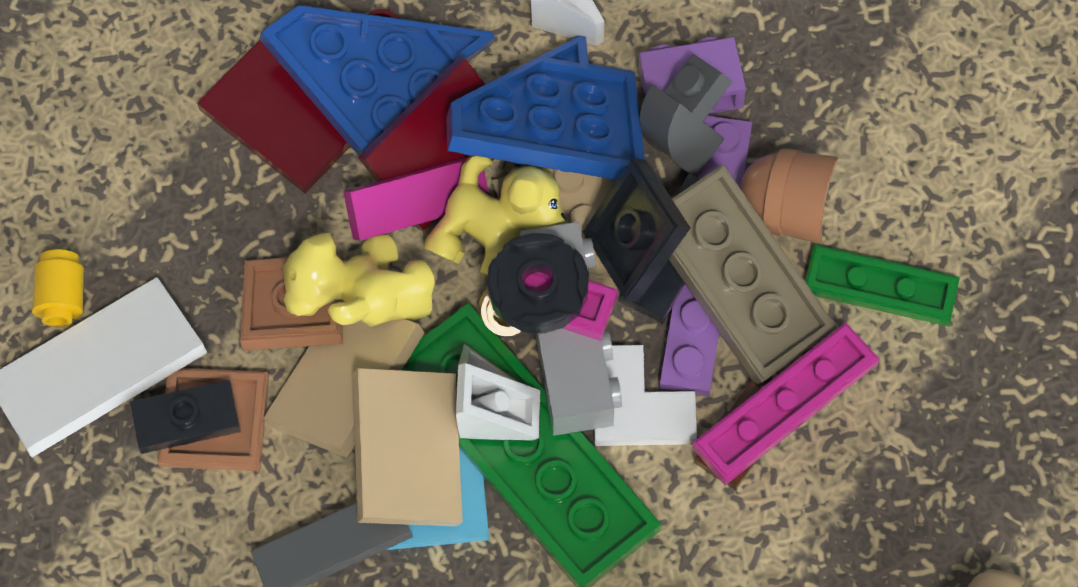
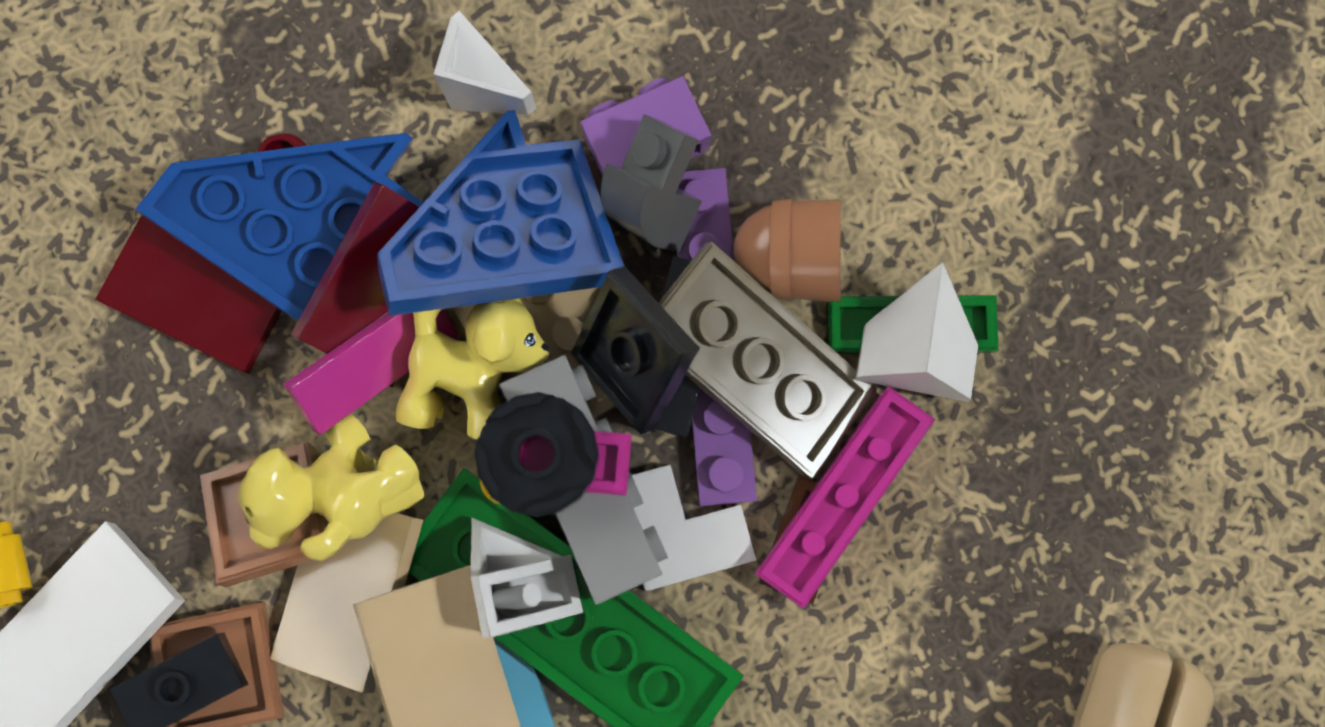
camera: 15 degrees left, 15 degrees up
(883, 293) = (921, 342): none -> white slope

